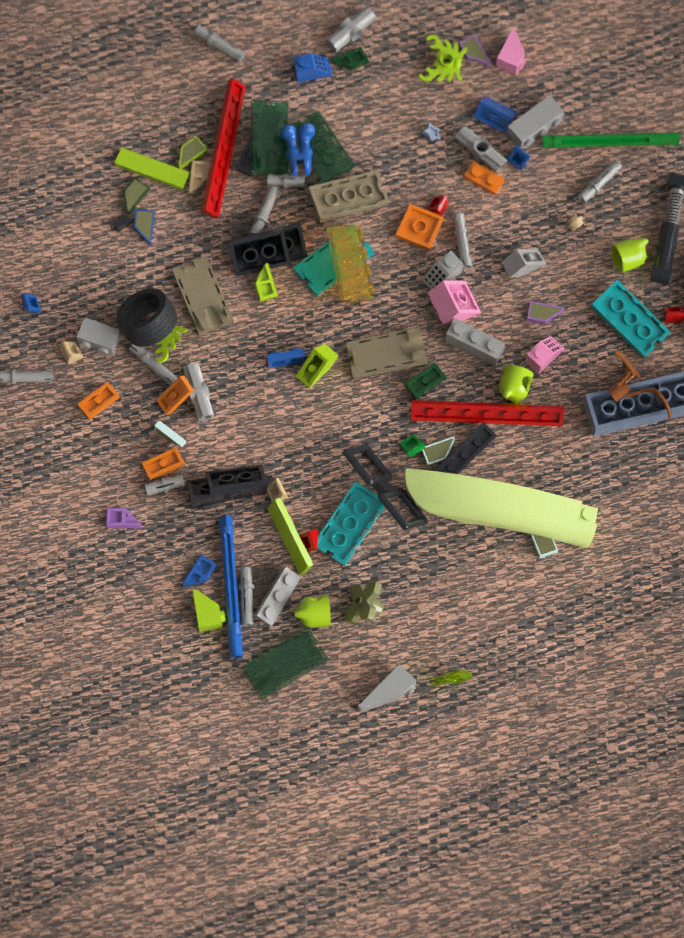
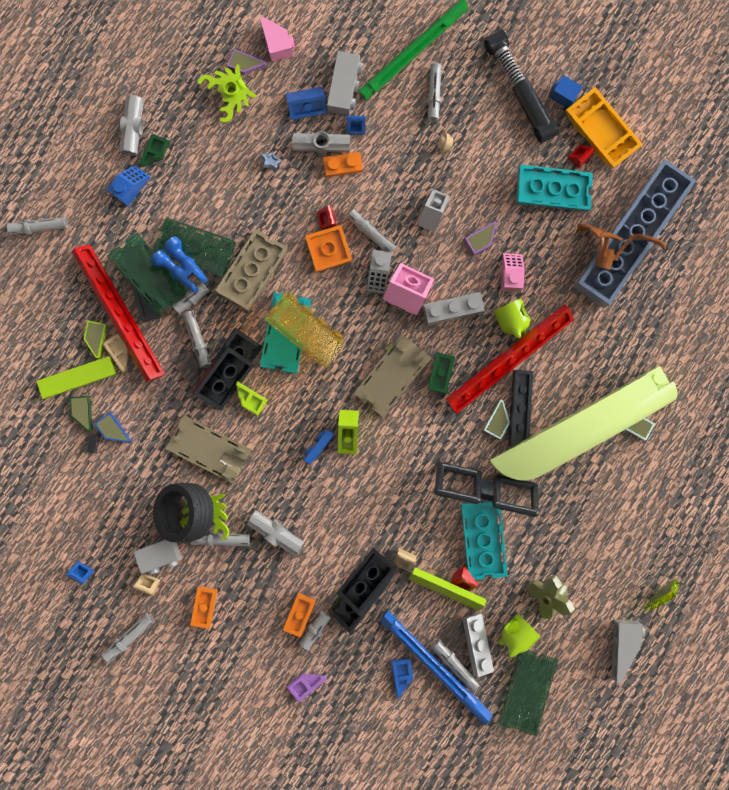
camera: 40 degrees left, 15 degrees up
(169, 434) = (284, 588): light aqua tile -> none
(174, 395) = (260, 553): orange plate -> none
(207, 612) = (437, 705): lime slope -> none
(411, 445) = (475, 434): green tile -> none
(629, 254) = (511, 133): lime piece -> none

